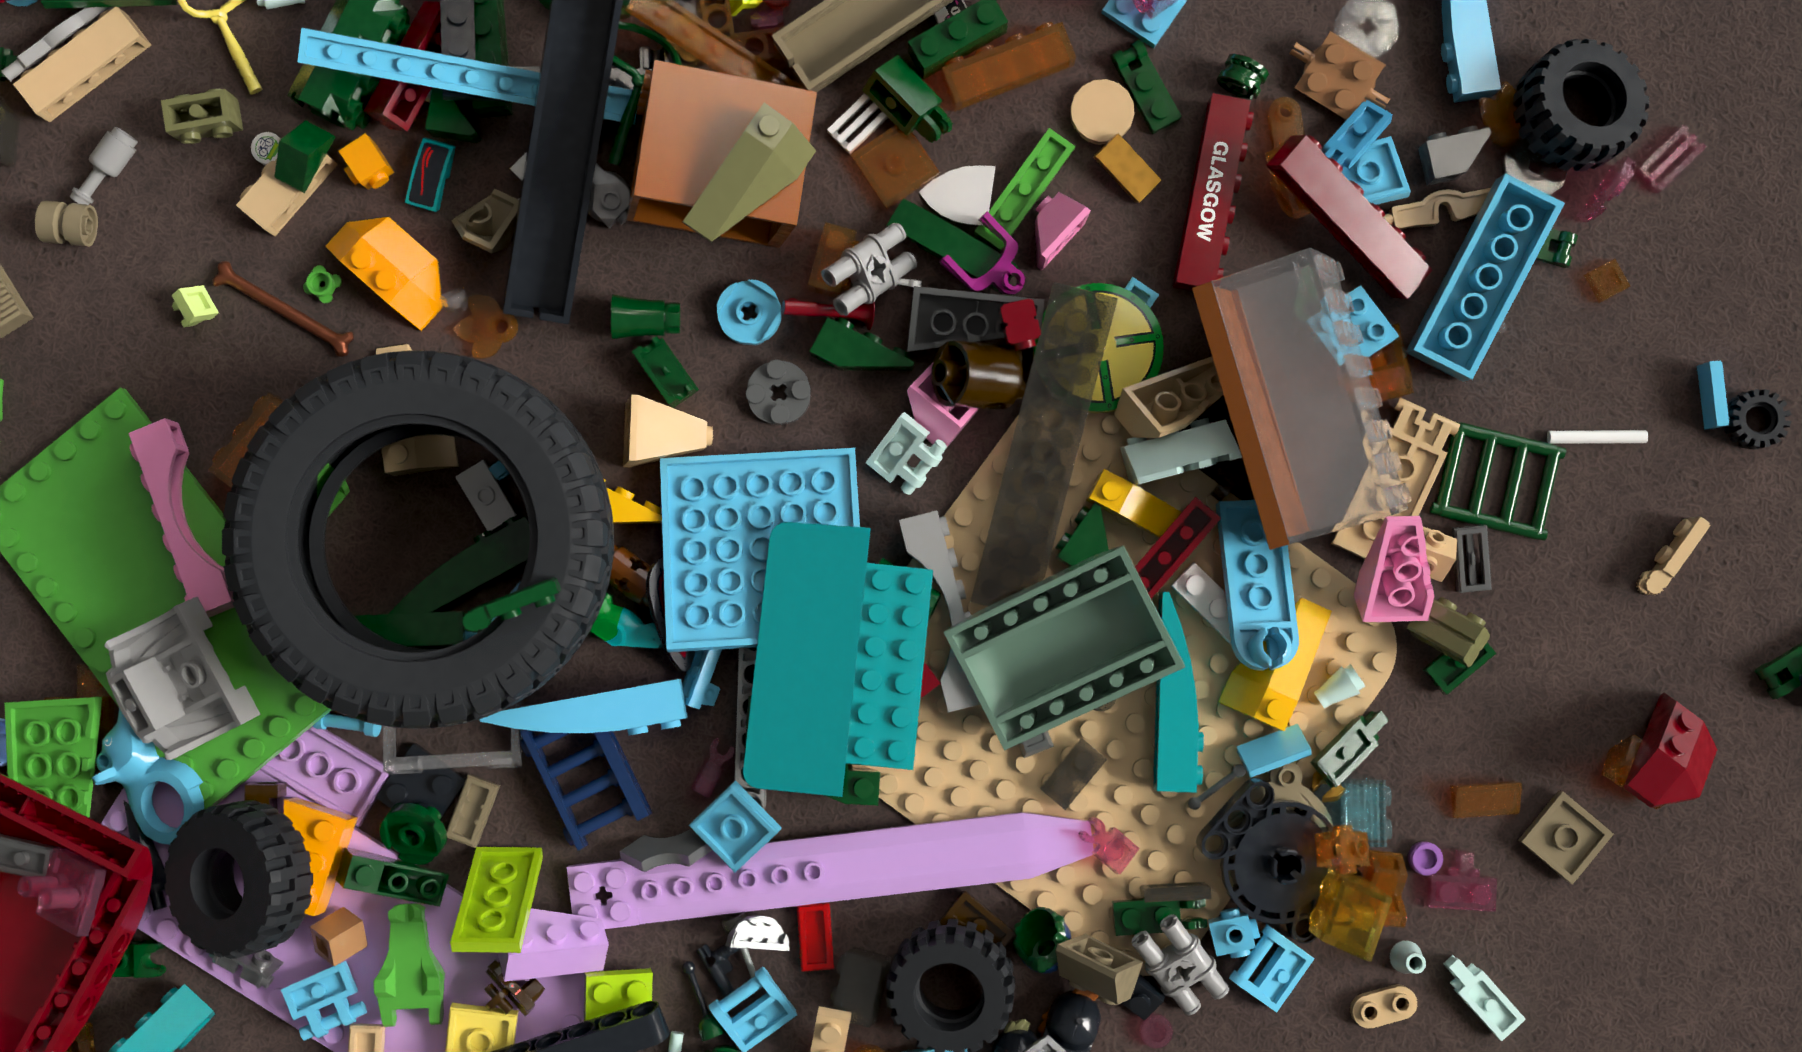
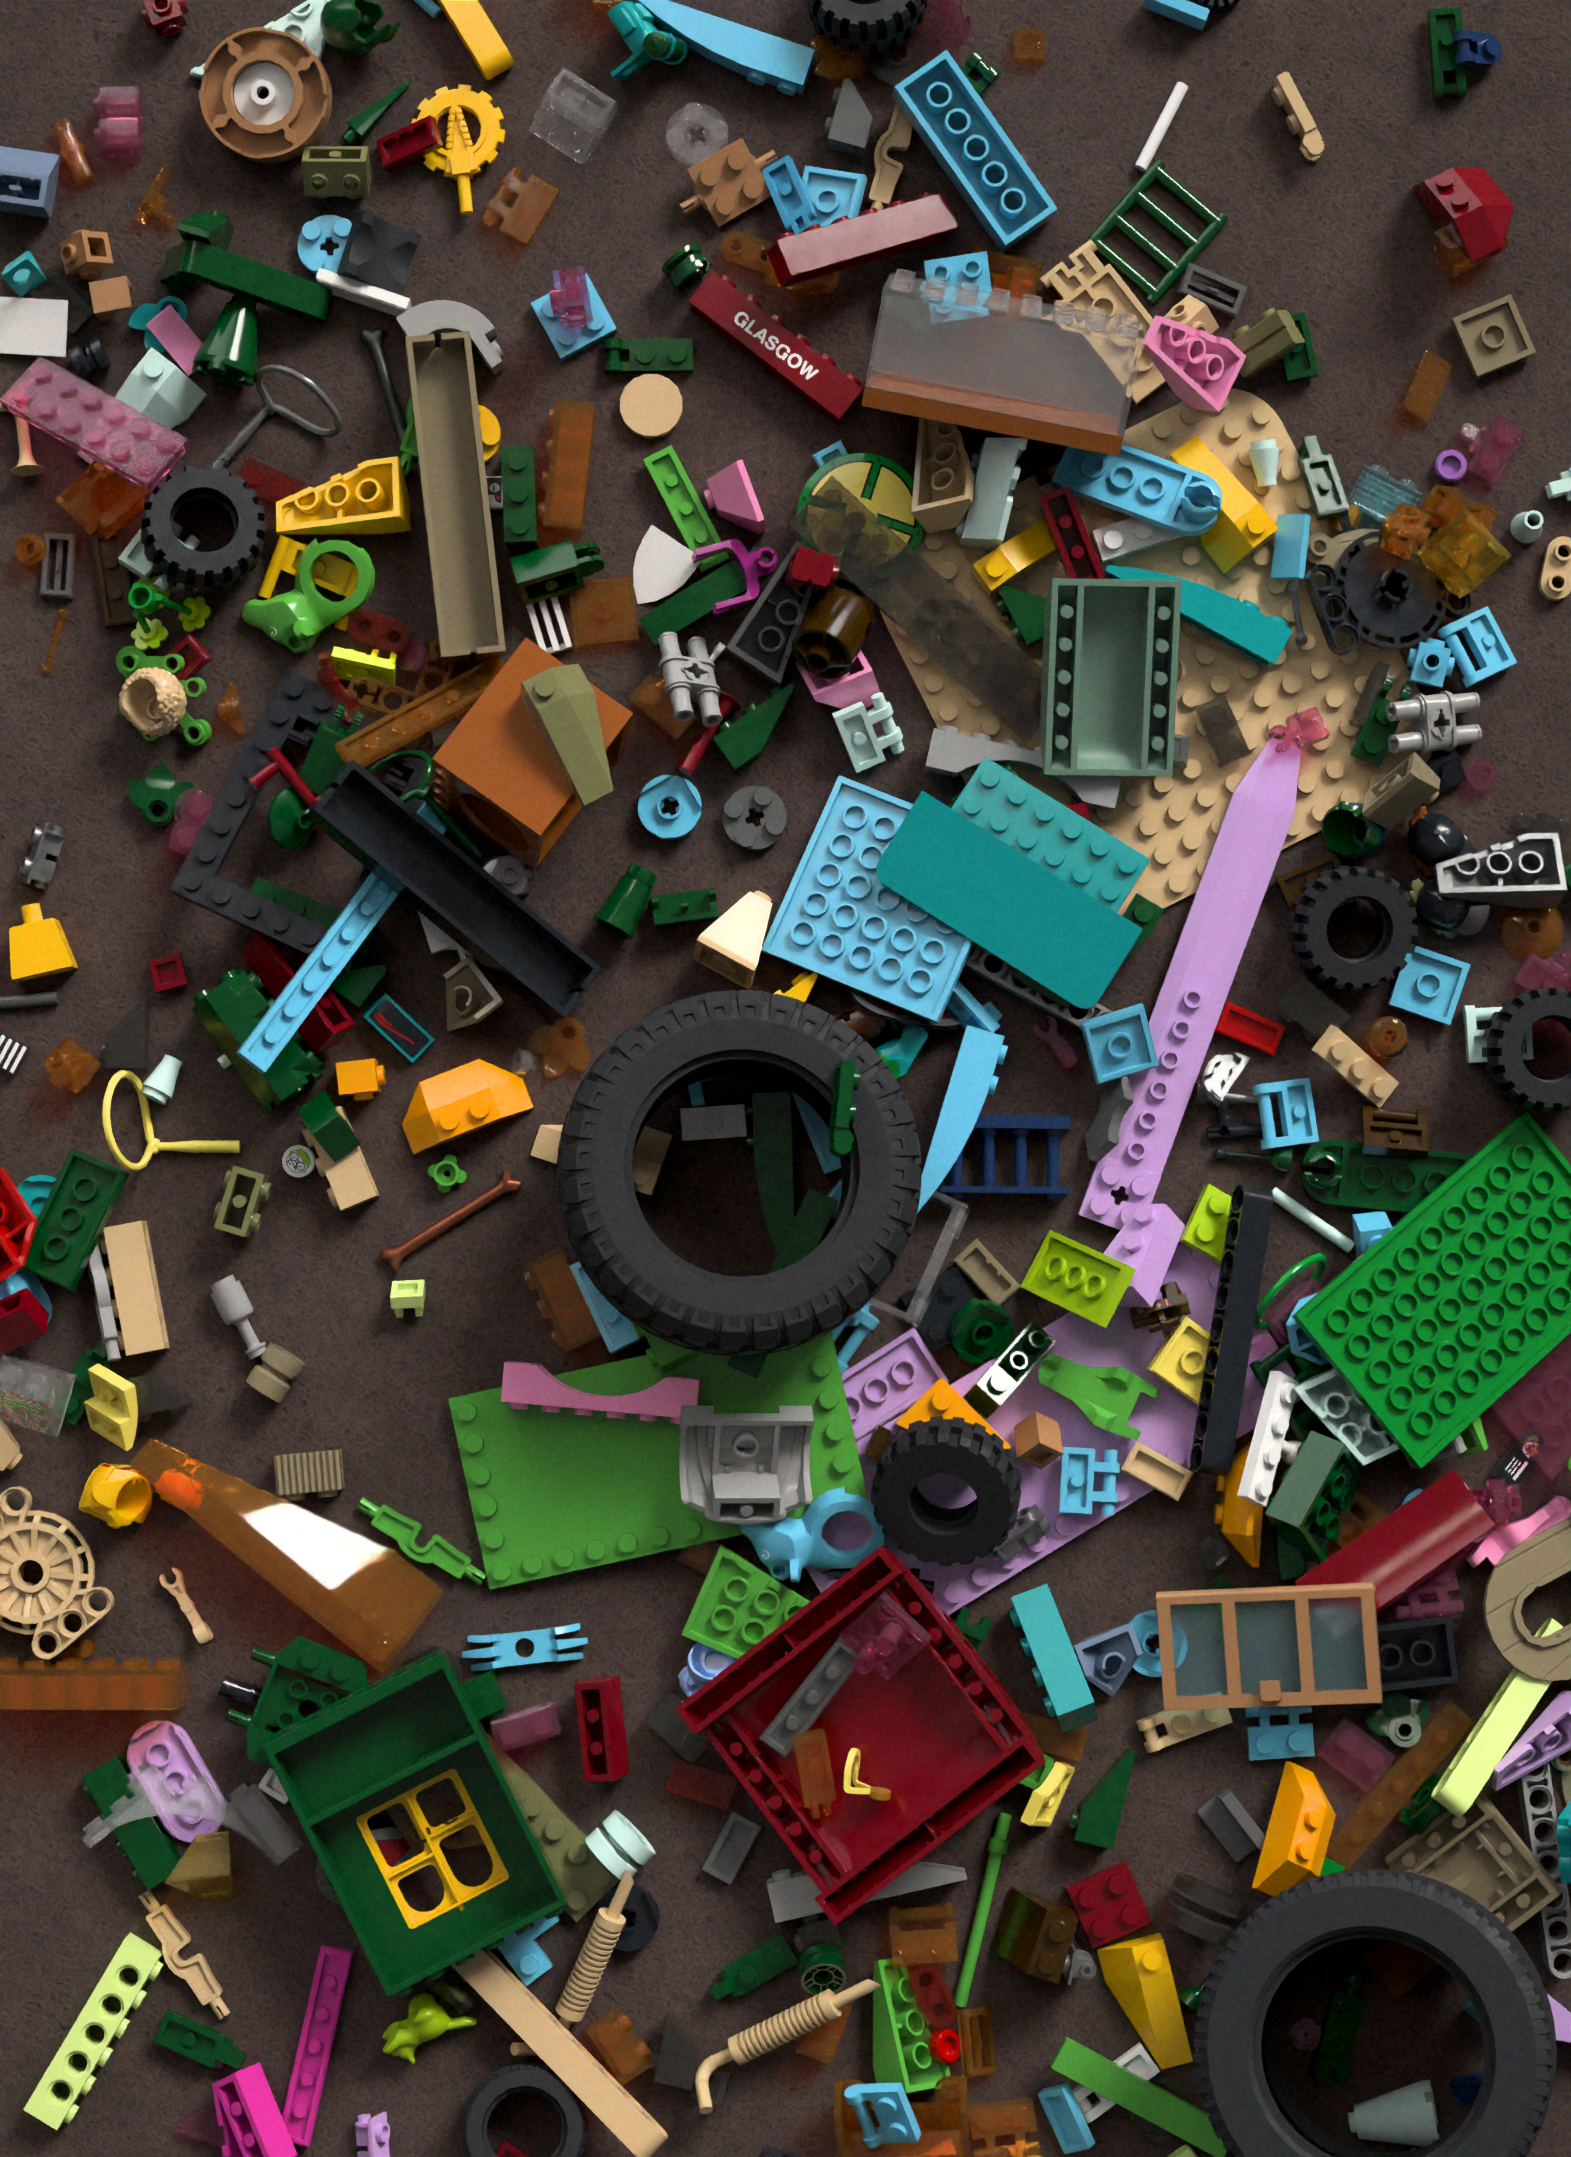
camera: 65 degrees left, 0 degrees up
(1127, 168) = (714, 409): pearl gold tile -> none

